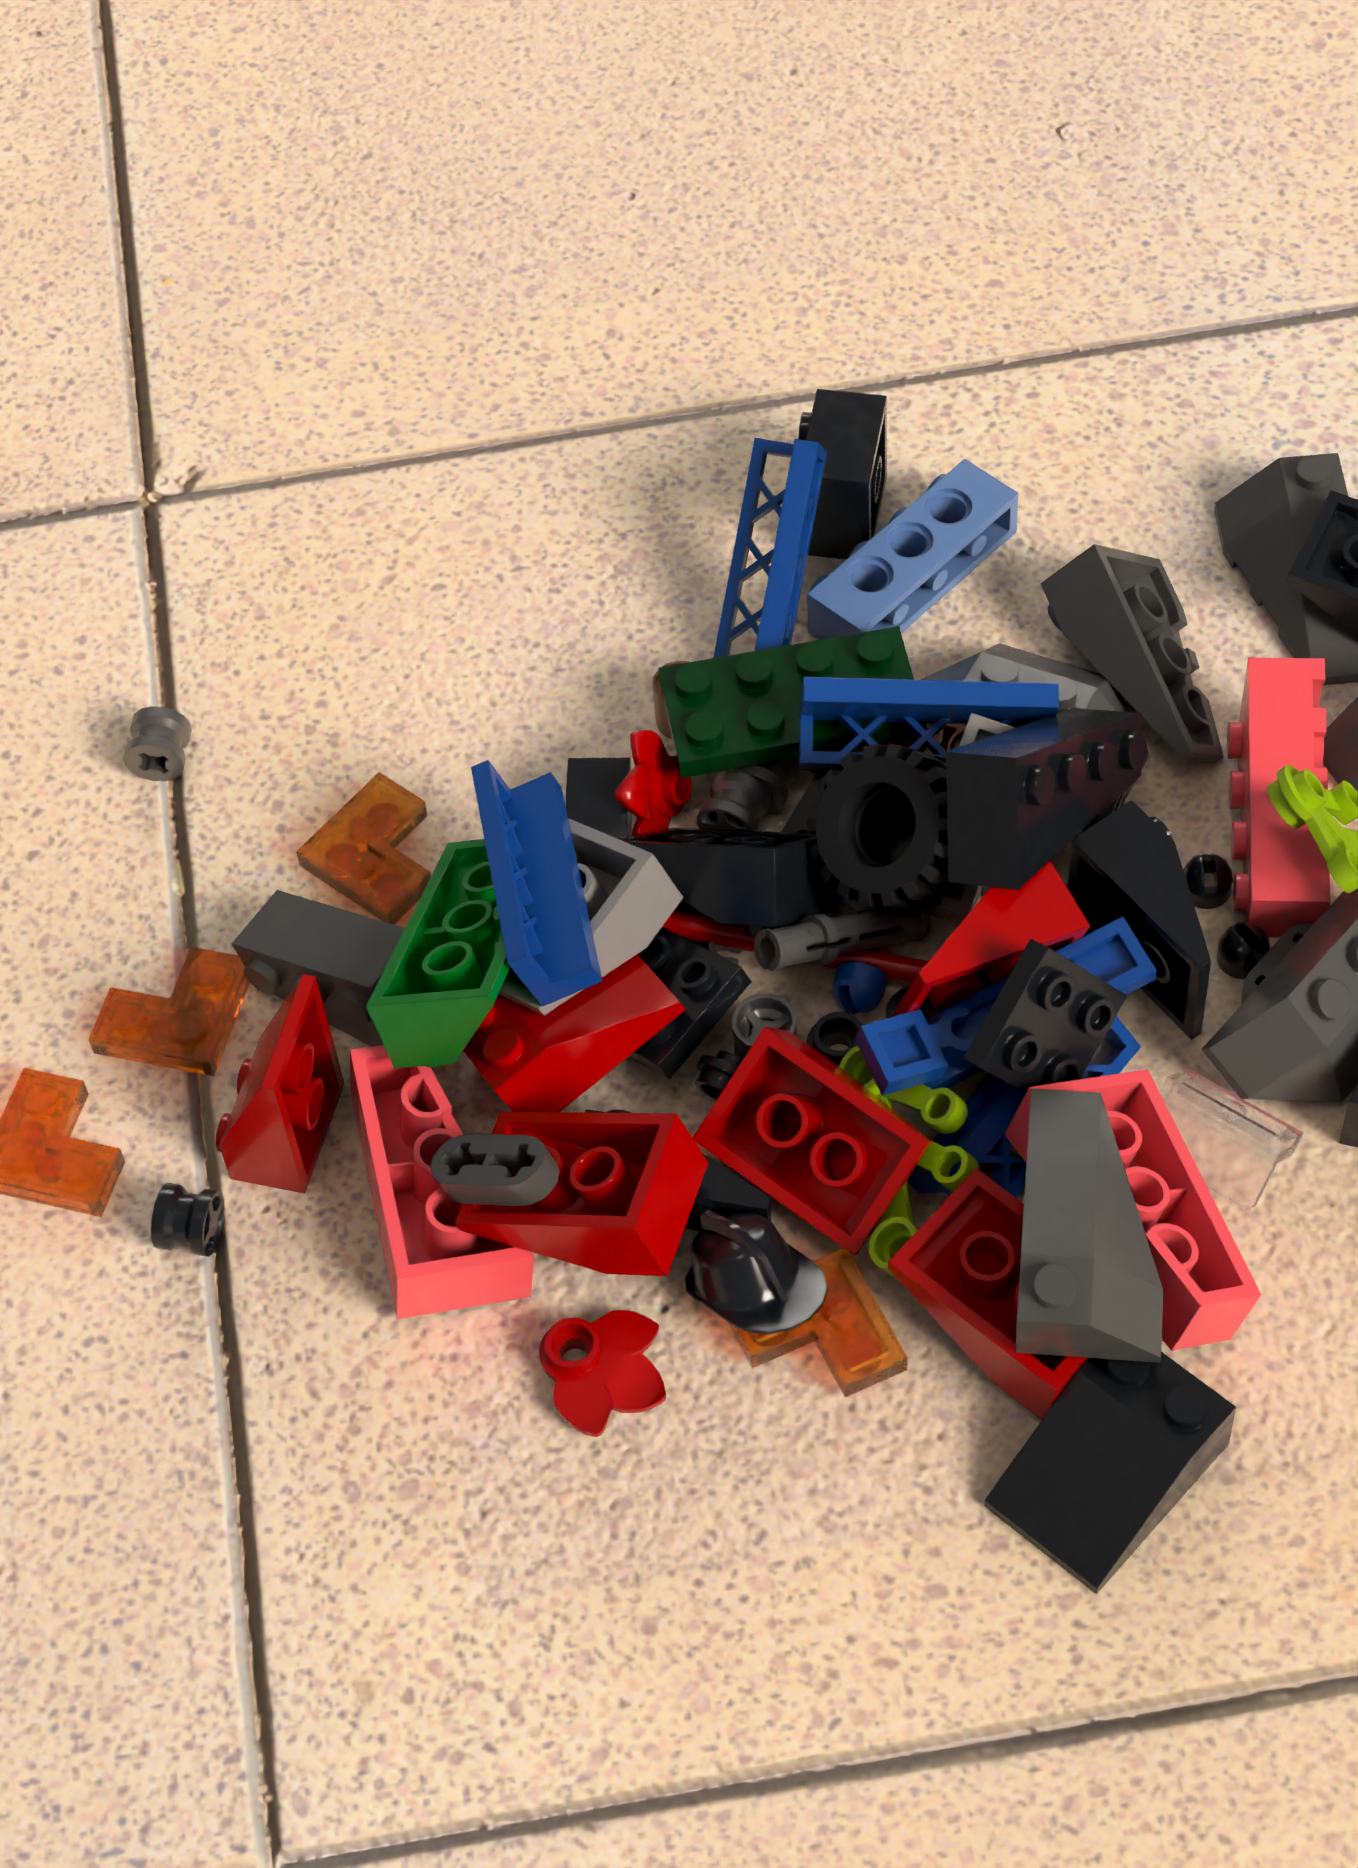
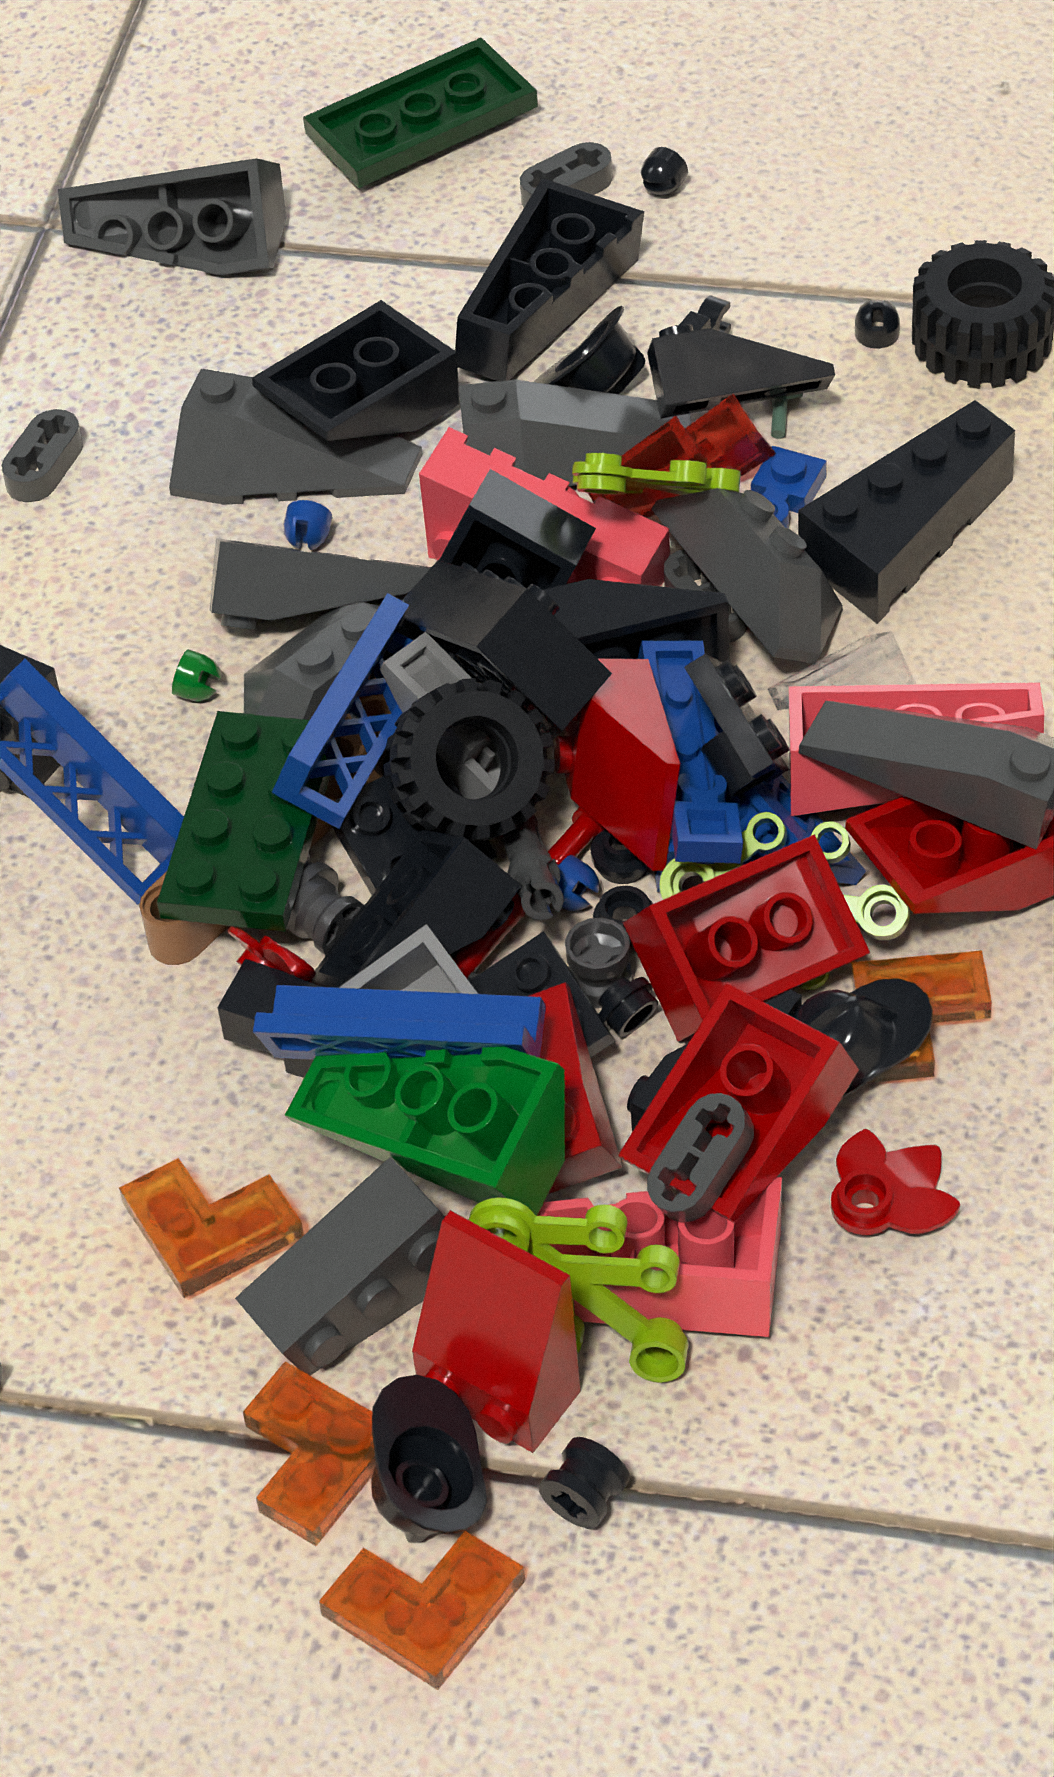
camera: 70 degrees left, 5 degrees down
(160, 1086) = (425, 1459): none -> black piece
(357, 1110) = (657, 1343): none -> lime plant
(915, 555) = (113, 693): medium blue brick -> none
(981, 608) = (192, 676): none -> green hinge
(1199, 771) = (518, 535): none -> black brick
(1203, 395) = (34, 452): none -> dark grey beam
(1211, 621) = (307, 523): none -> blue hinge

